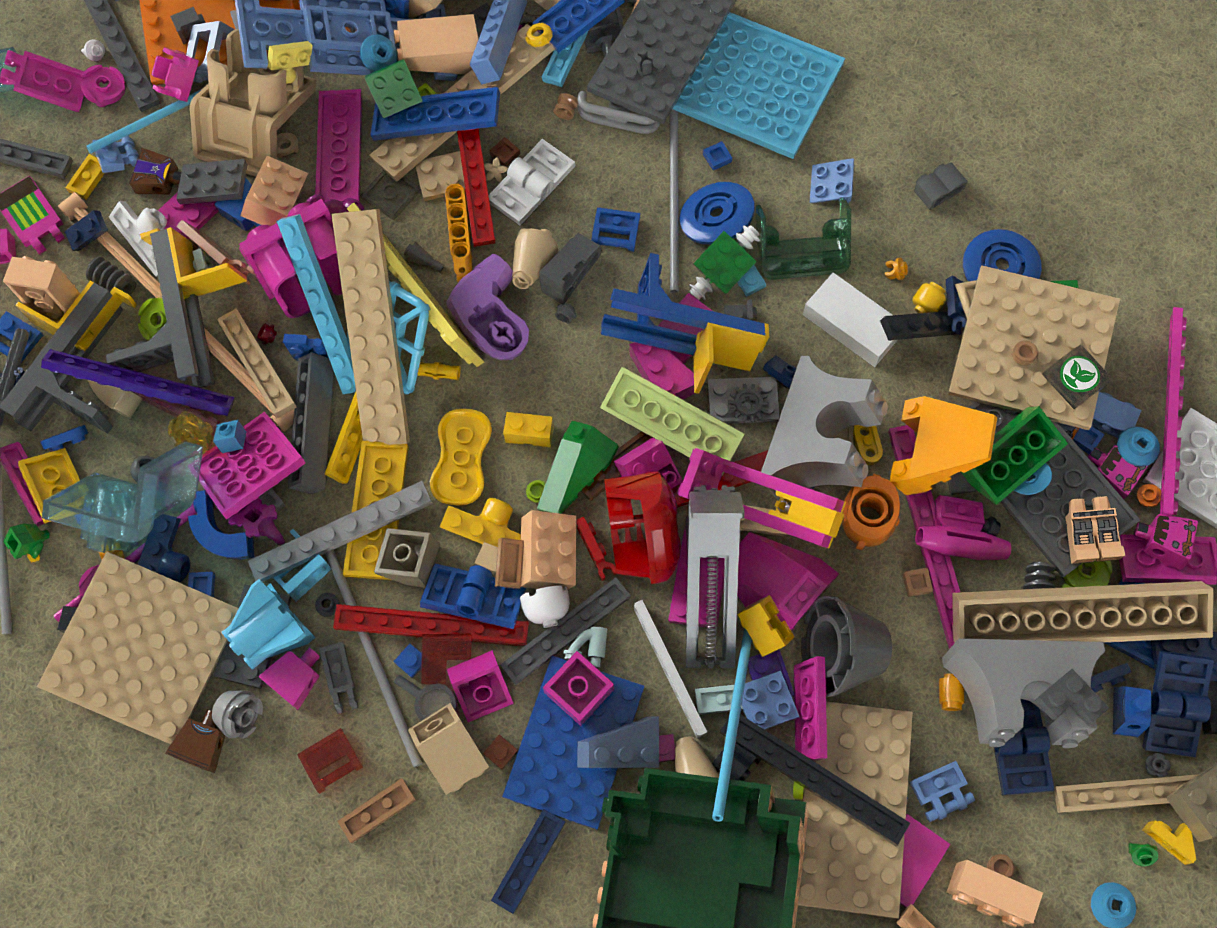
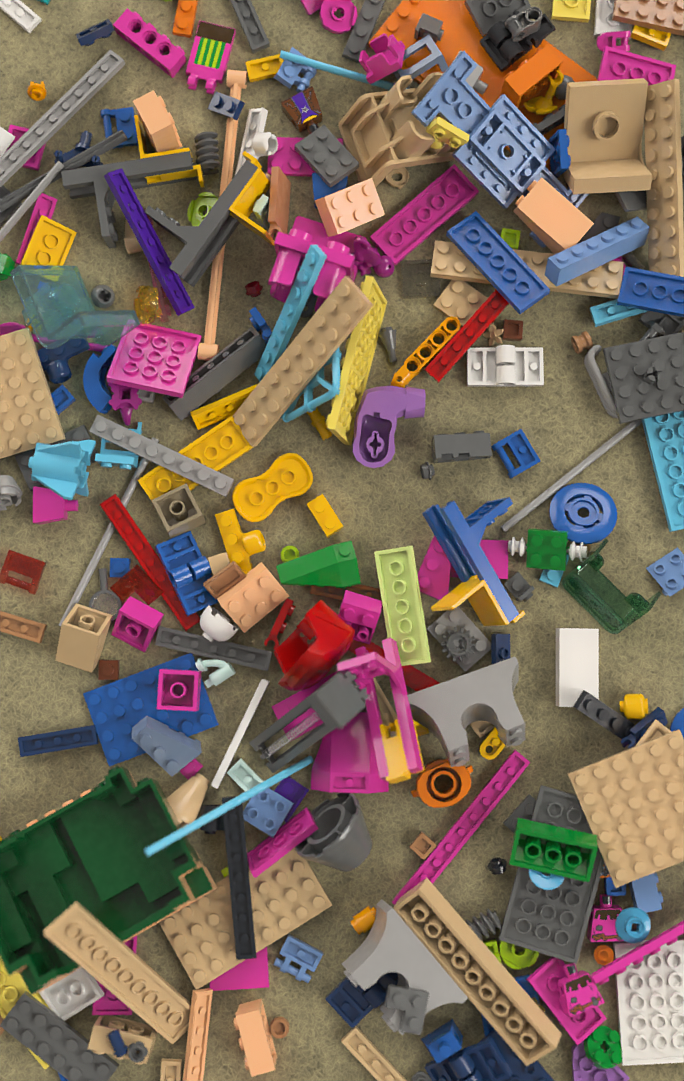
camera: 50 degrees right, 15 degrees up
(55, 442) = (78, 223): blue plate -> none
(229, 436) = (164, 331): dark azure plate -> none
(256, 363) = (226, 302): tan plate -> none
(330, 611) = (118, 486): black plate -> none
(338, 674) = (75, 532): dark grey hinge -> none
(369, 54) = (503, 178): dark azure piece -> none
(393, 88) = (489, 219): green plate -> none
(531, 253) = (444, 418): tan cone -> none
(543, 39) = (616, 287): yellow piece -> none
(717, 156) = (629, 477): blue plate -> none
(764, 626) = (311, 773): yellow brick -> none
(899, 270) = (642, 669): light orange plate -> none
(946, 442) = (527, 802): light orange wedge -> none
(962, 532) = (477, 851): dark pink plate -> none
(1024, 353) = (634, 807): medium nougat tile -> none
(1077, 376) = (643, 855): slope -> none
(1094, 532) = (540, 940): light nougat hips -> none
(1113, 675) = (457, 1014): dark blue plate -> none

